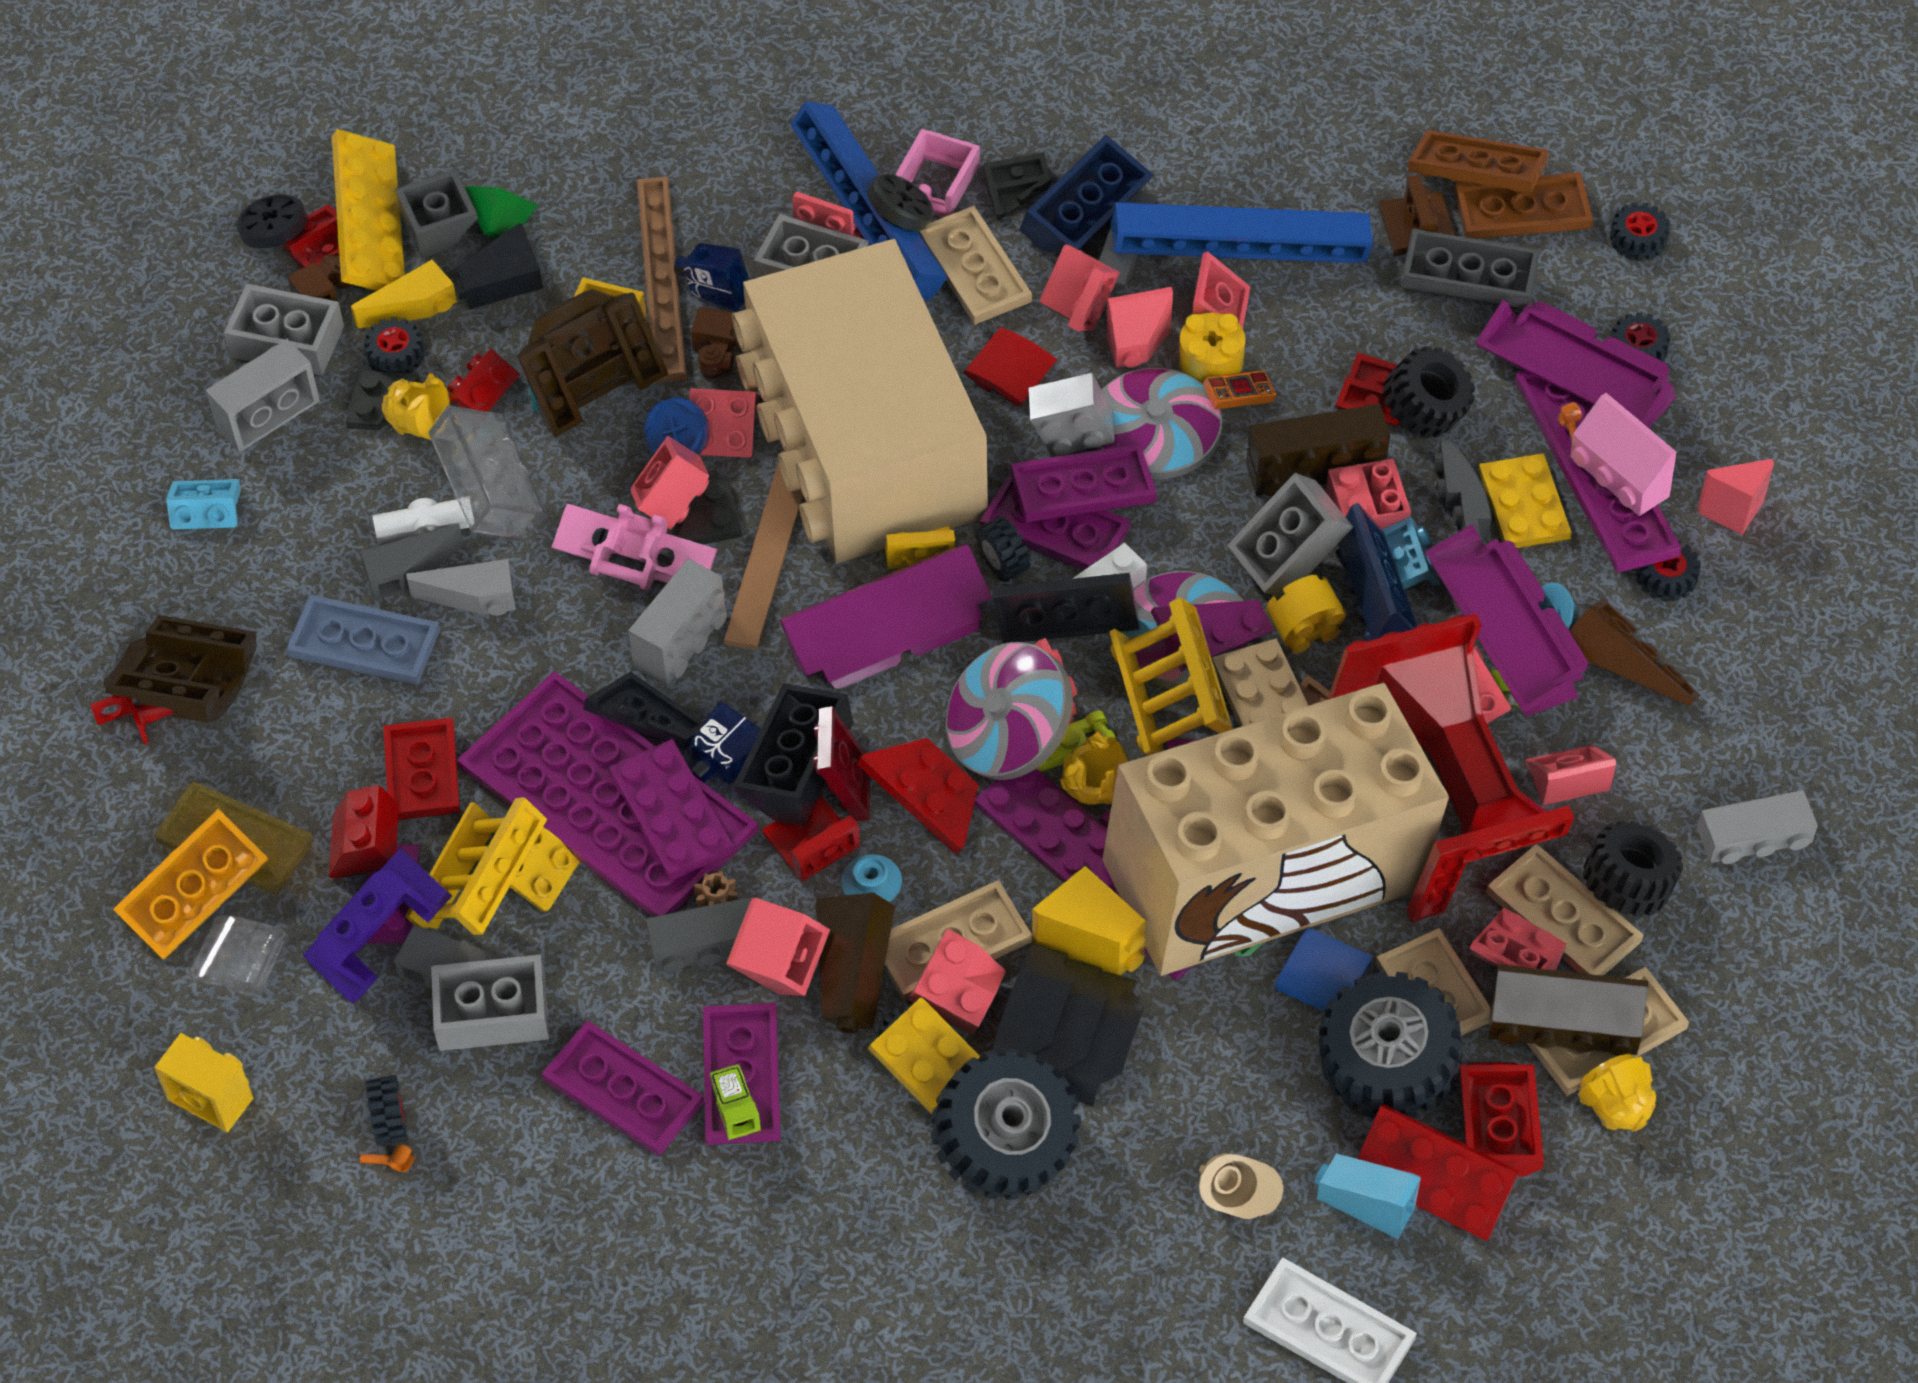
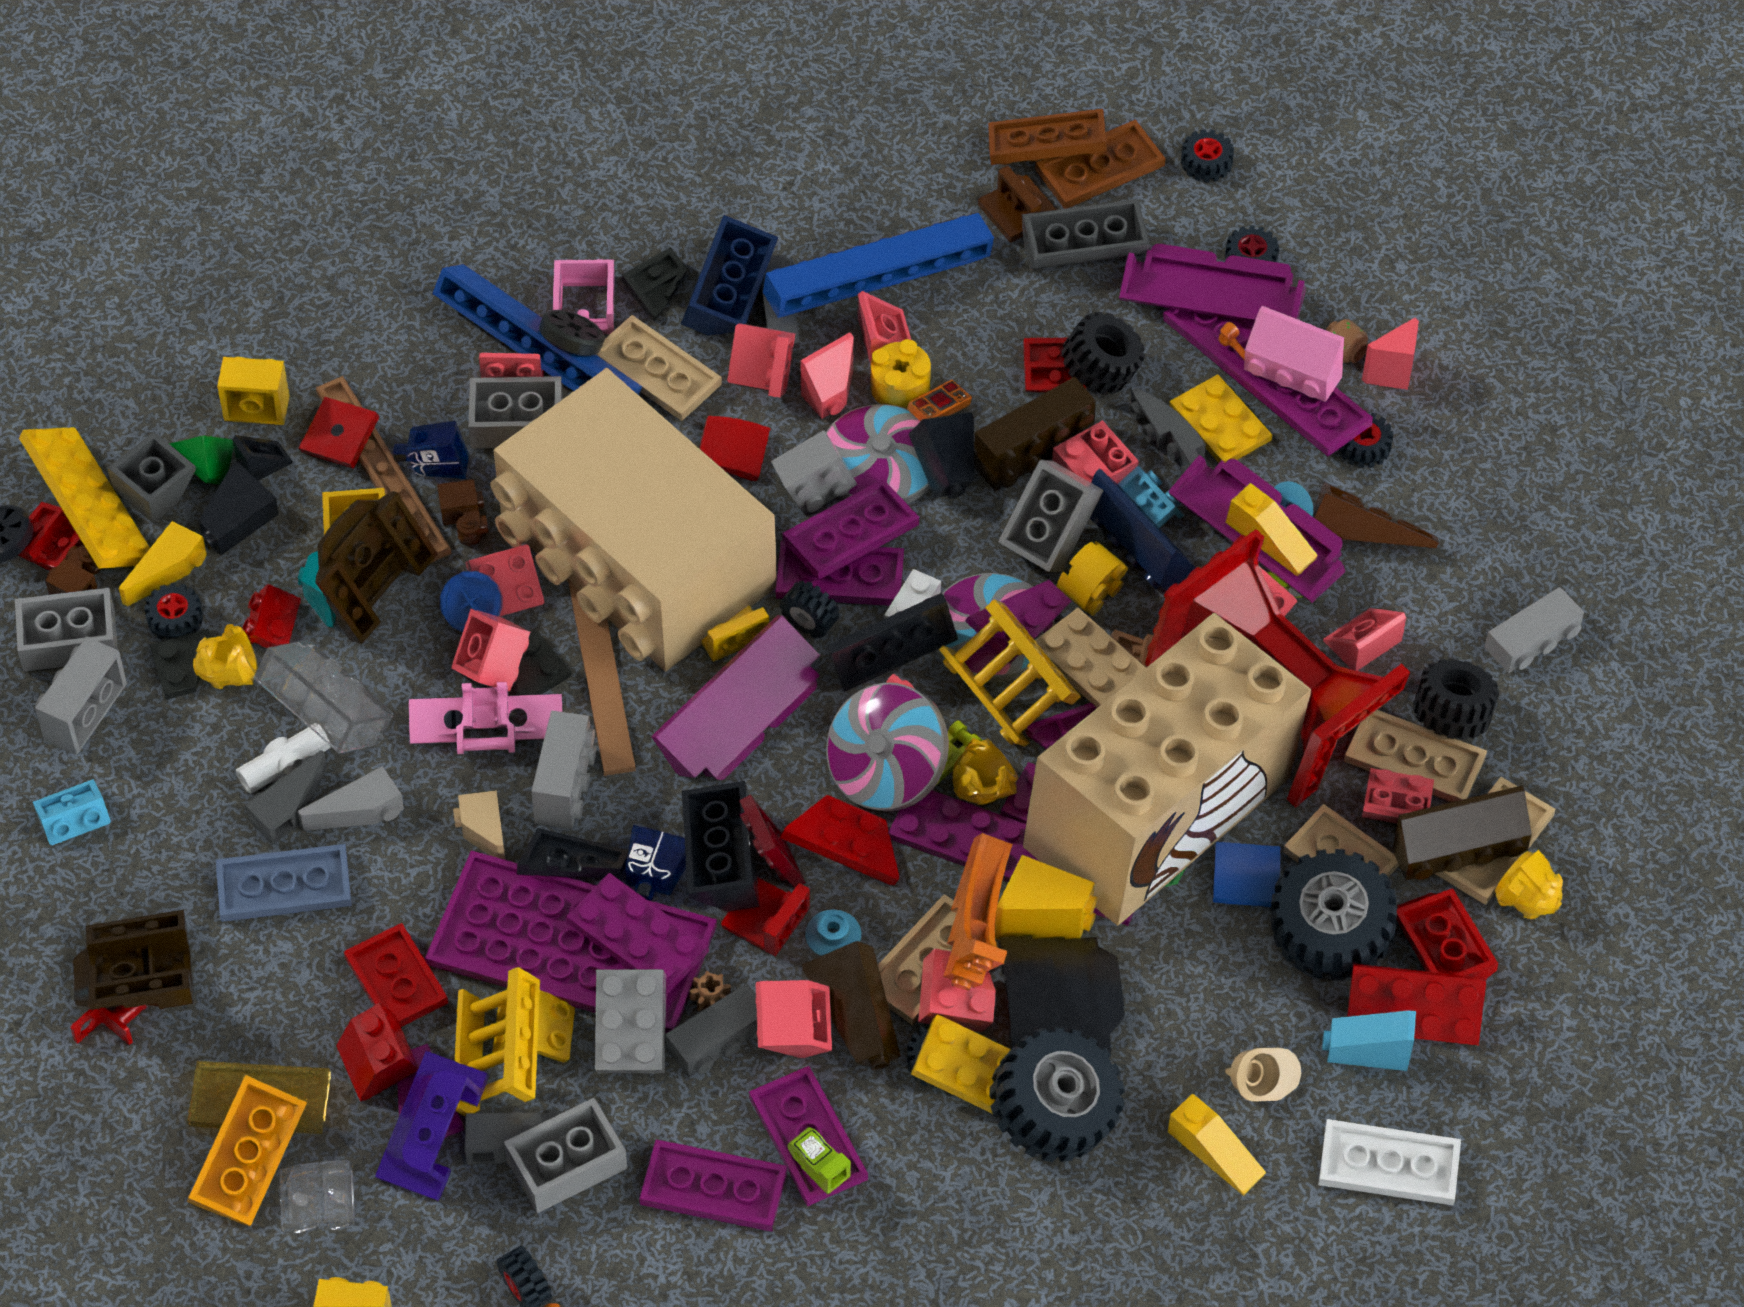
camera: 25 degrees left, 0 degrees up
(550, 227) = (260, 456): none -> black slope
(571, 161) = (253, 390): none -> yellow brick
(580, 646) = (481, 822): none -> tan slope
(616, 892) = (630, 1021): none -> light grey brick
(635, 228) = (339, 432): none -> red tile
(1008, 907) = (976, 906): none -> orange arch
(1152, 1239) = (1214, 1143): none -> yellow slope
(1217, 439) = (946, 452): none -> black slope
(1512, 625) = (1282, 540): none -> yellow slope
(1694, 460) = (1354, 339): none -> medium nougat head

